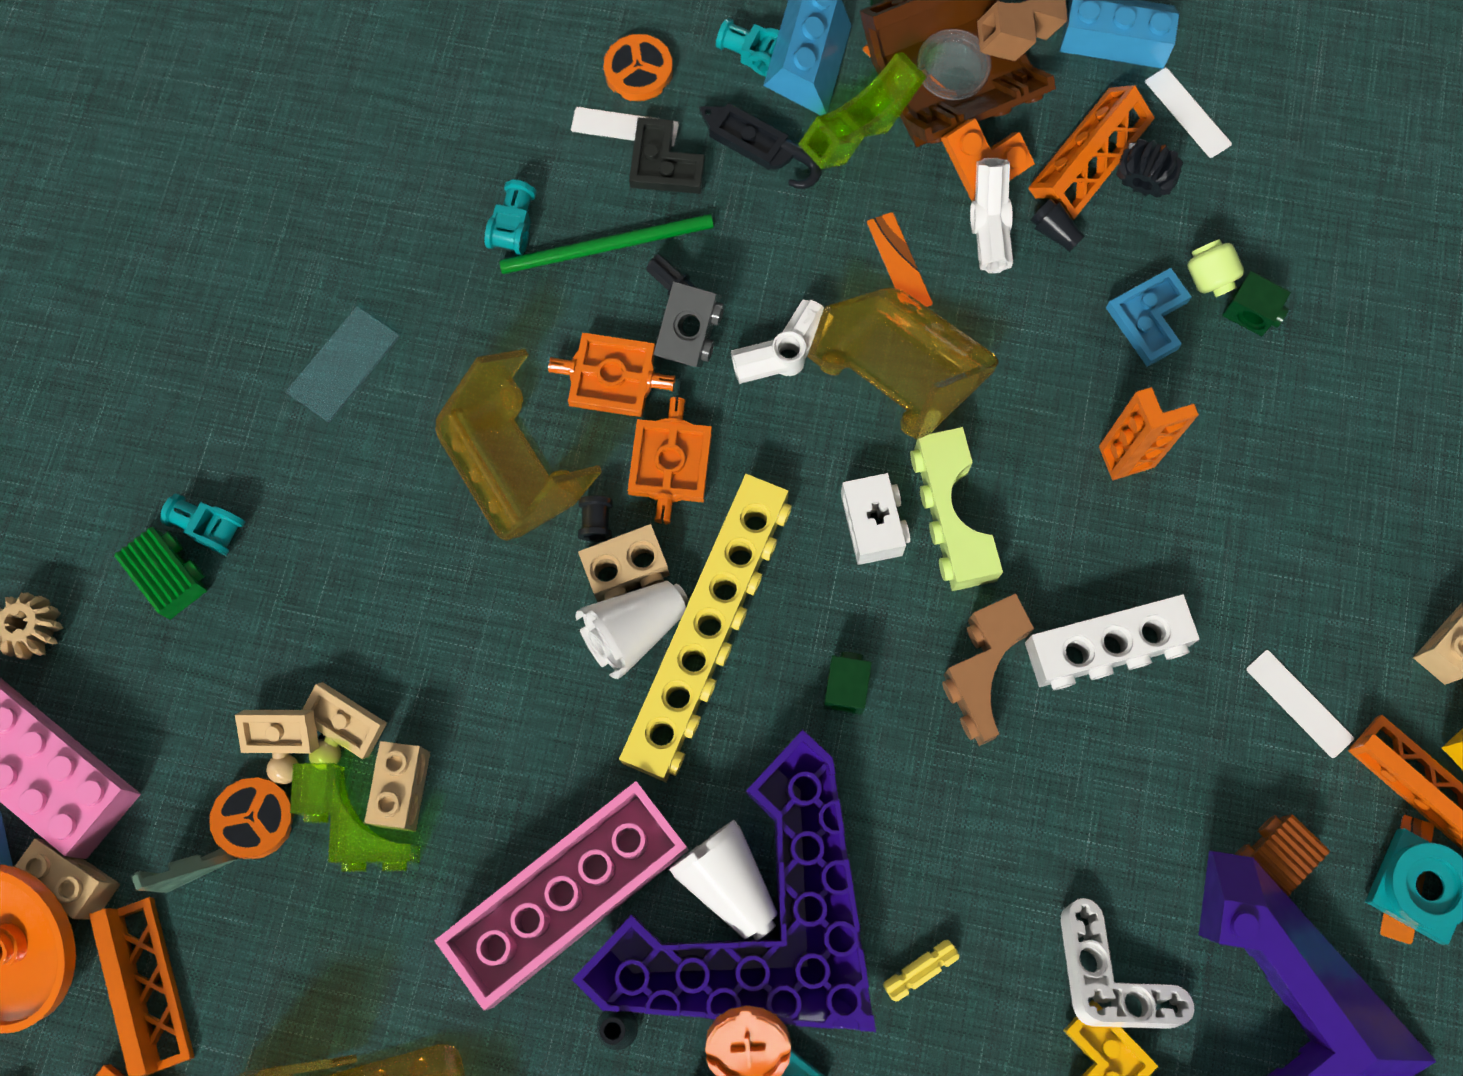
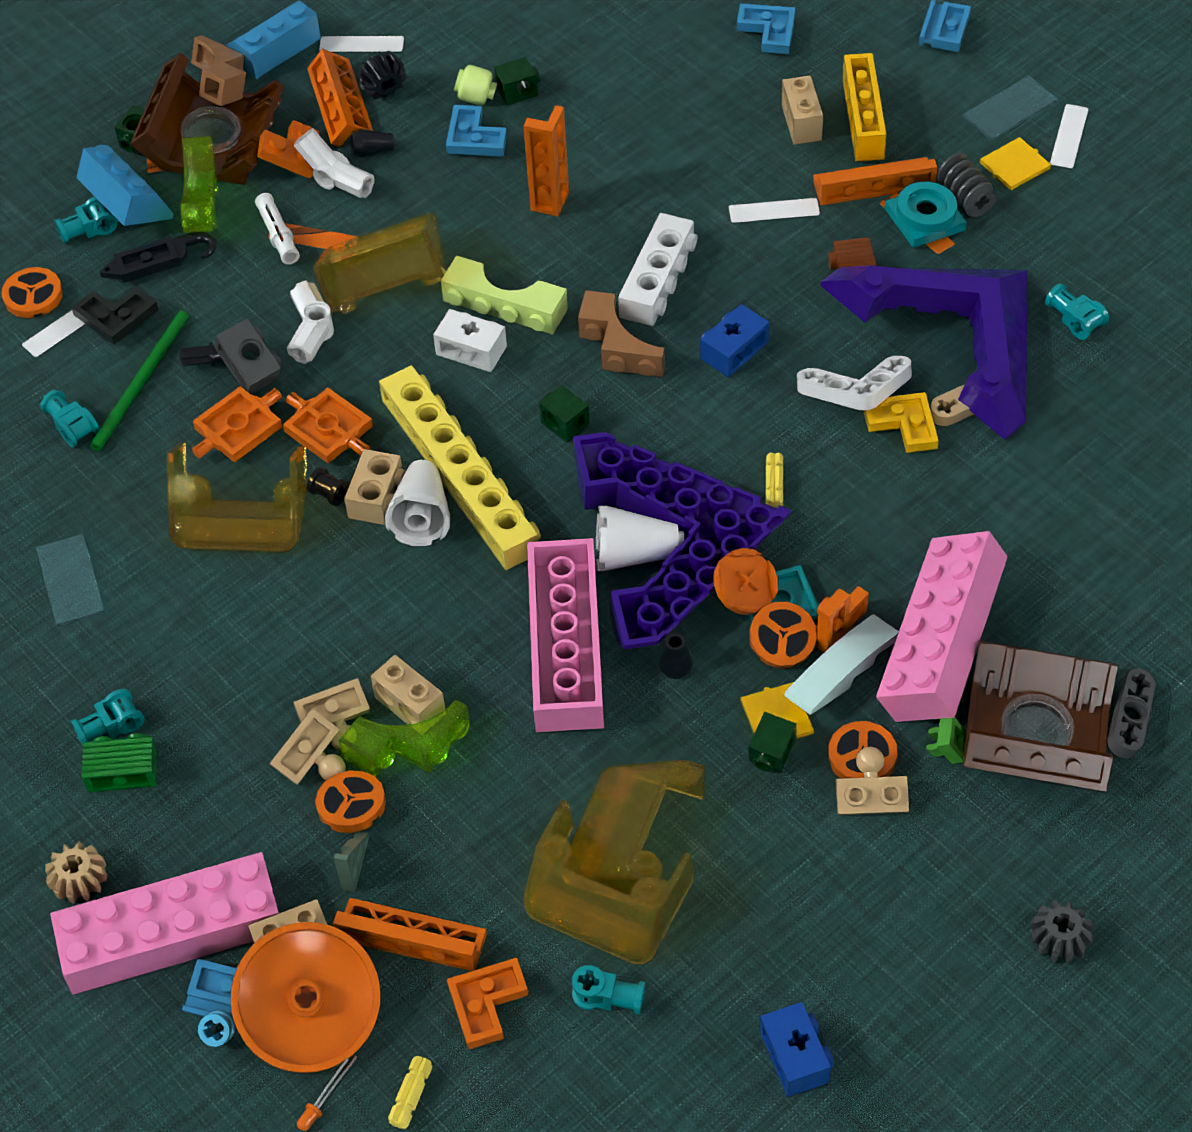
camera: 55 degrees left, 20 degrees down
(870, 234) = (287, 248): none -> white pin
(1097, 807) = (734, 340): none -> blue brick

